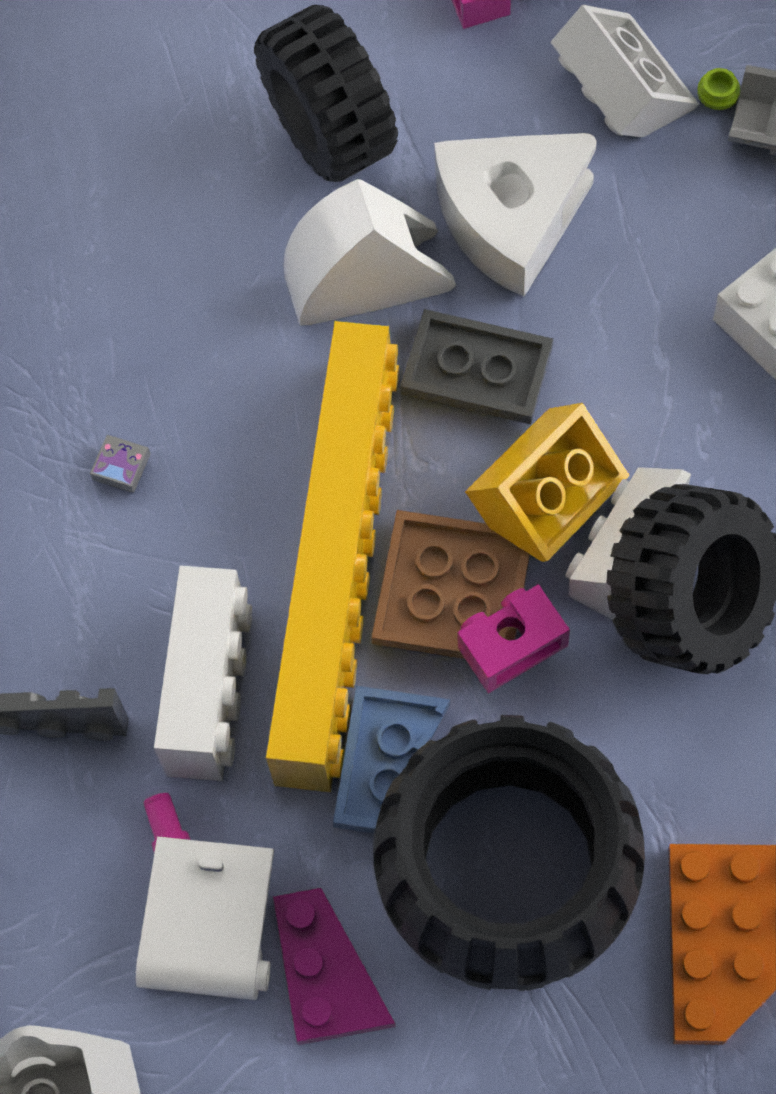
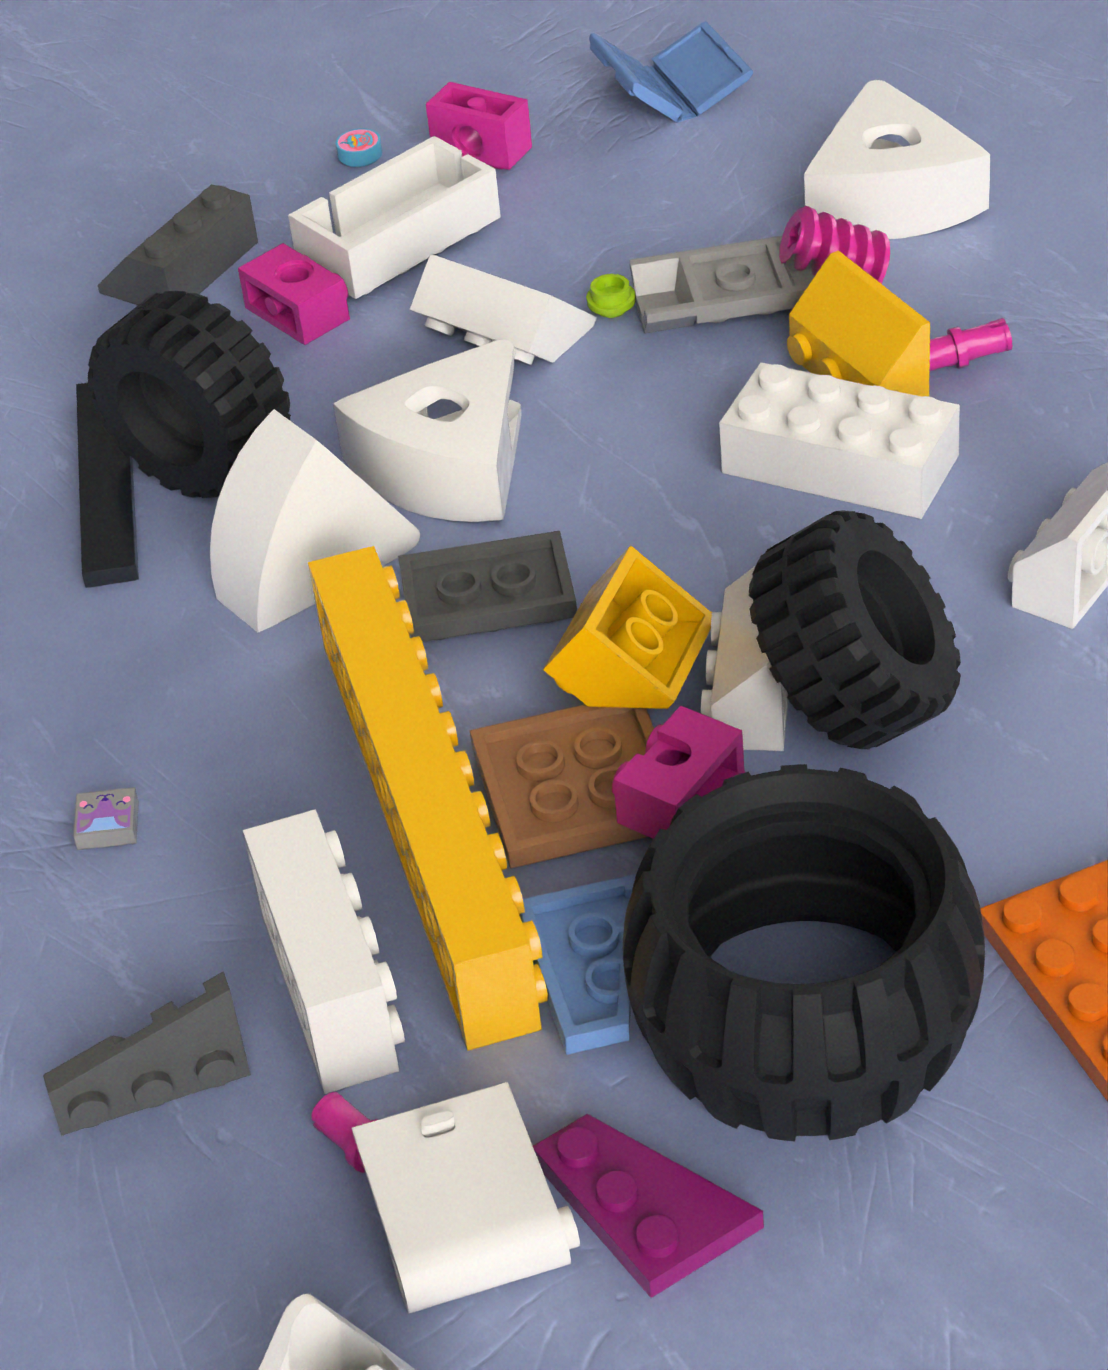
camera: 25 degrees left, 25 degrees down
(241, 145) = (105, 500): none -> black tile

